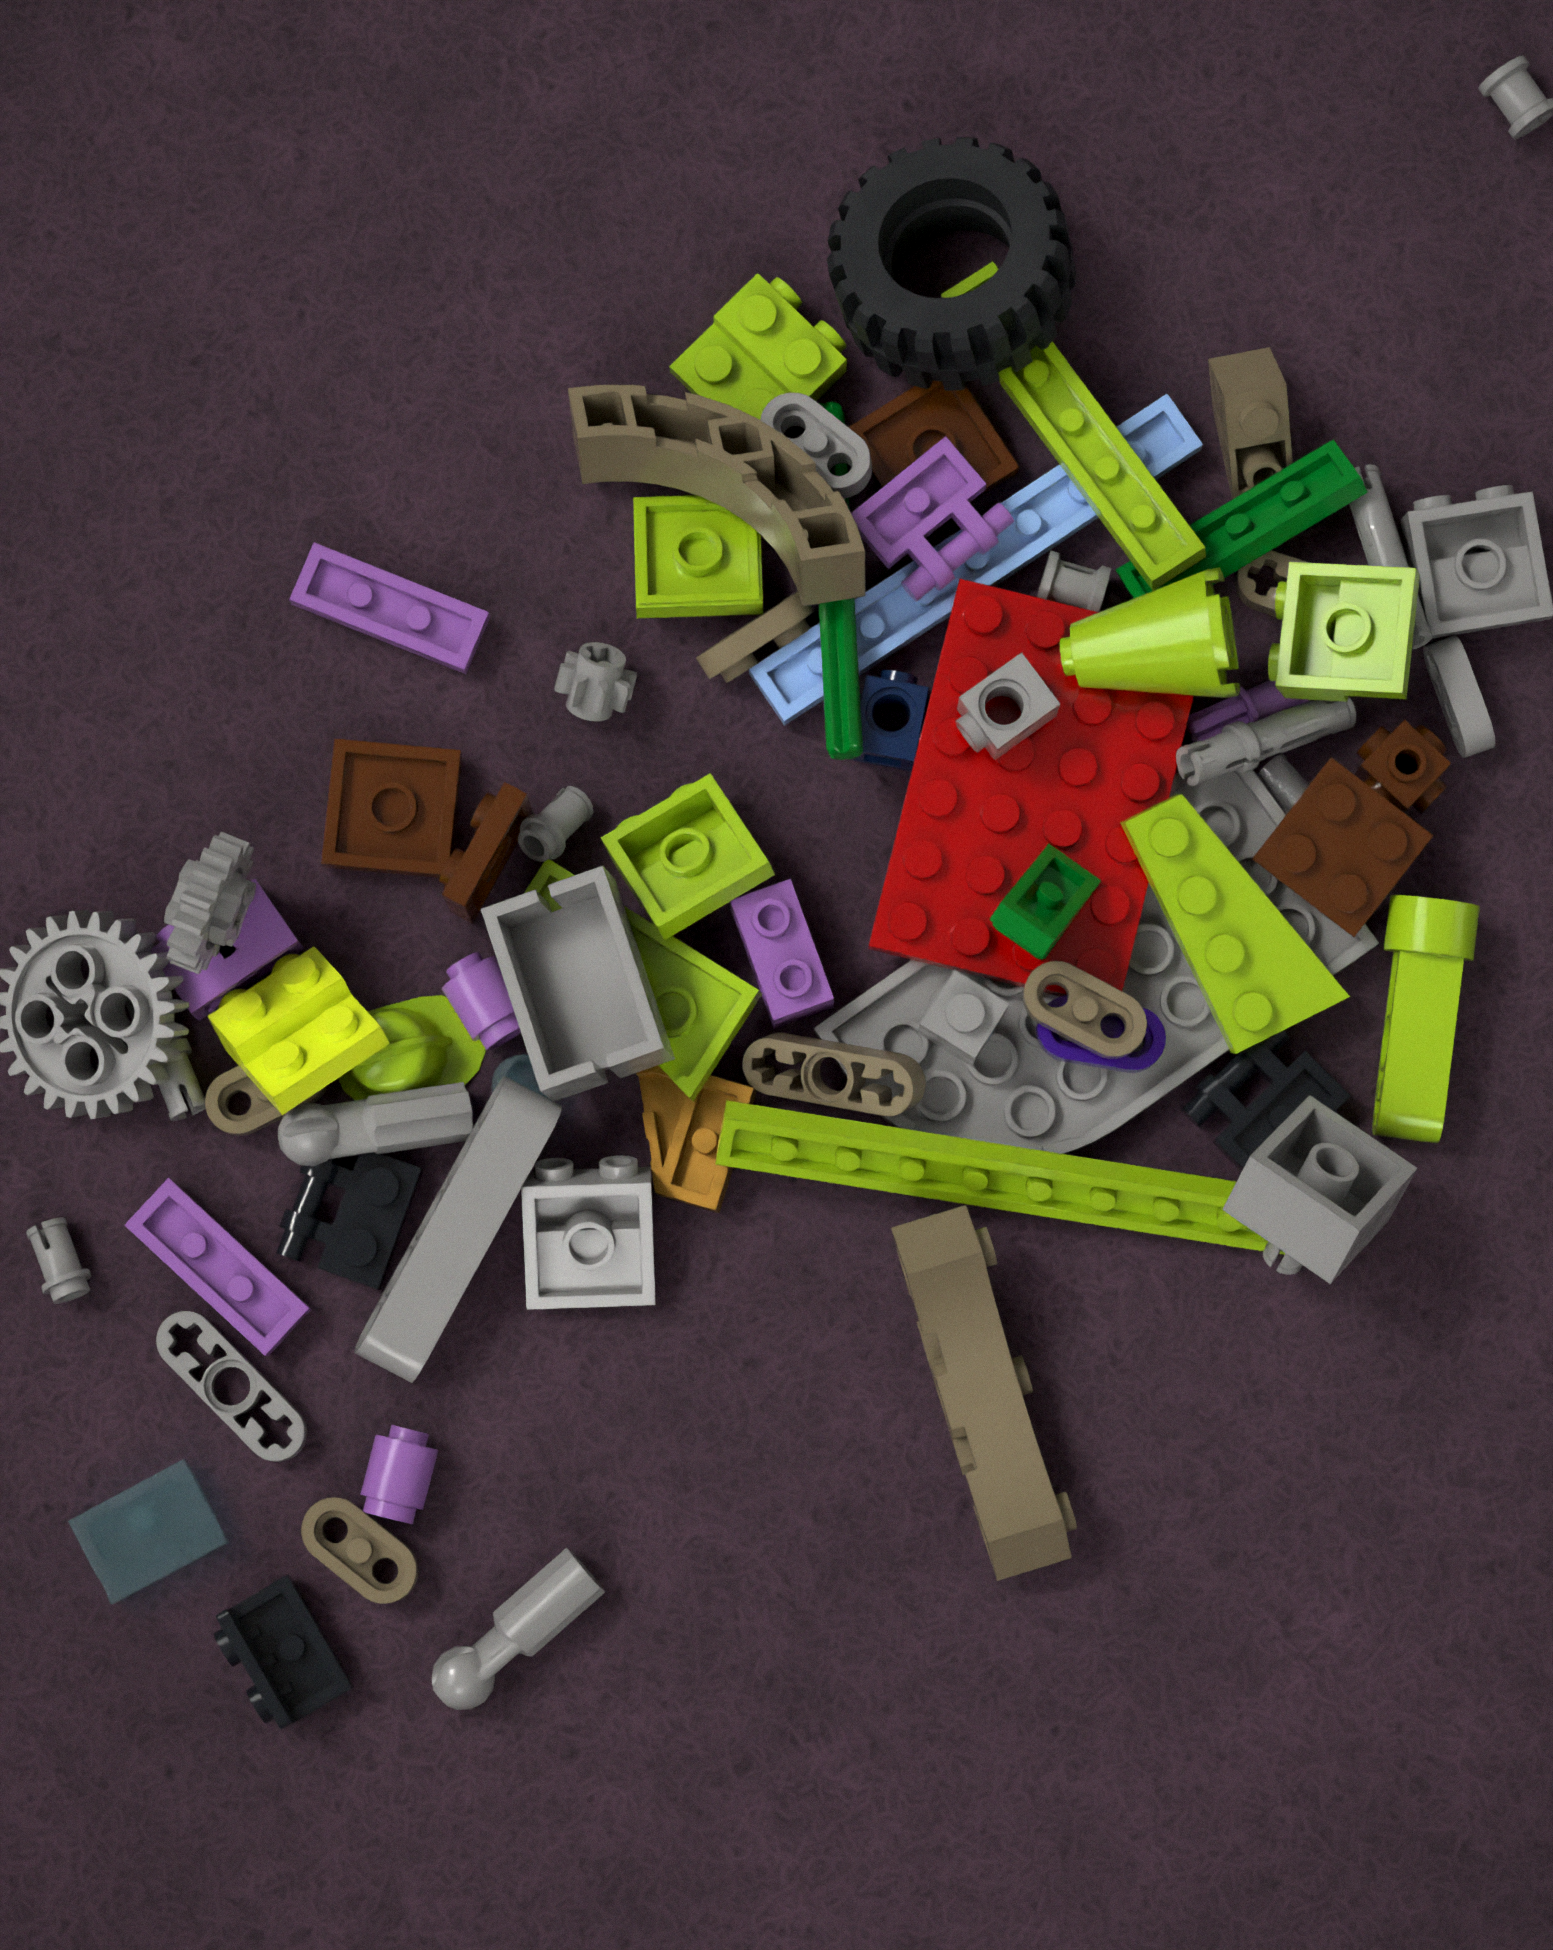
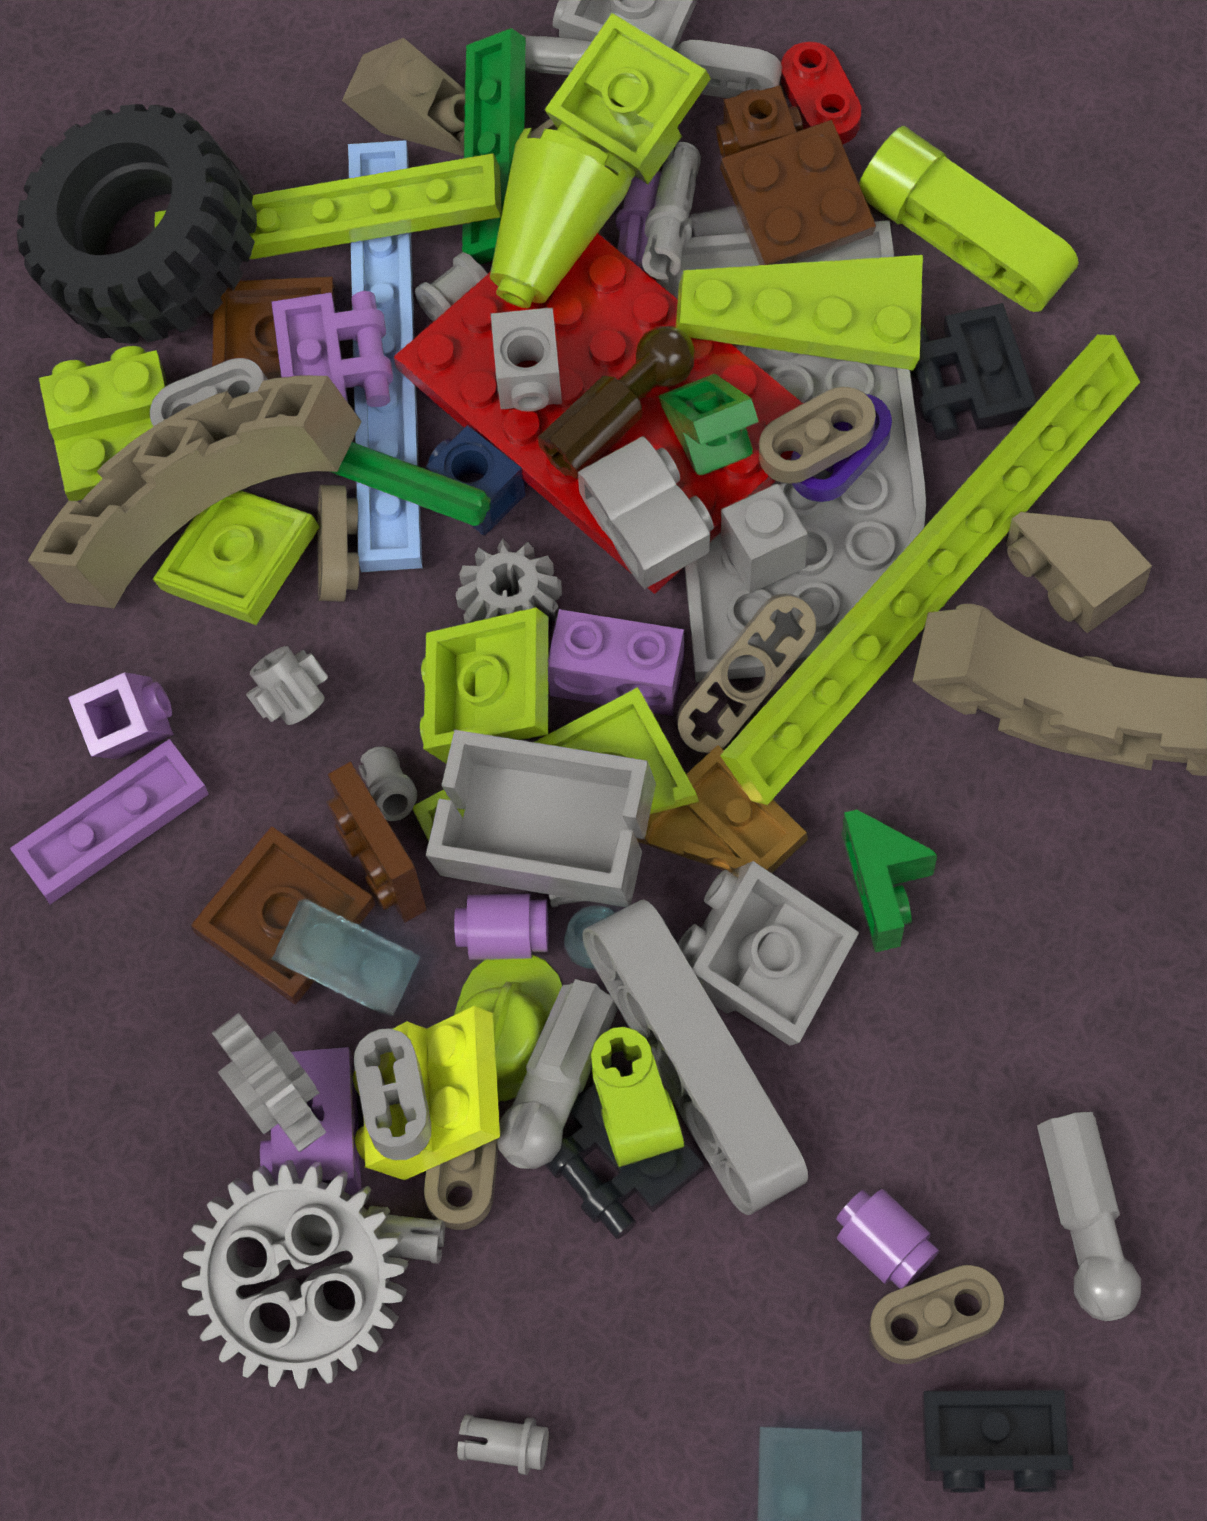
camera: 55 degrees left, 15 degrees down
(187, 1363) = (661, 1347): light grey beam -> none
(218, 1267) = (598, 1297): medium lavender plate -> none
(254, 996) = (407, 1091): none -> light grey beam
(376, 1210) = (636, 1106): none -> lime piece
(379, 887) = (346, 957): none -> clear light blue plate
(481, 560) = (122, 715): none -> medium lavender brick
(727, 1282) = (878, 861): none -> green slope
(787, 800) = (506, 571): none -> light grey gear
(917, 902) = (645, 511): none -> light grey brick
(1007, 812) = (614, 404): none -> dark brown piece
(1120, 1311) = (1080, 563): none -> dark tan slope
(1318, 1191) = (1081, 338): light grey brick -> none
(1494, 796) = (820, 88): none -> red plate

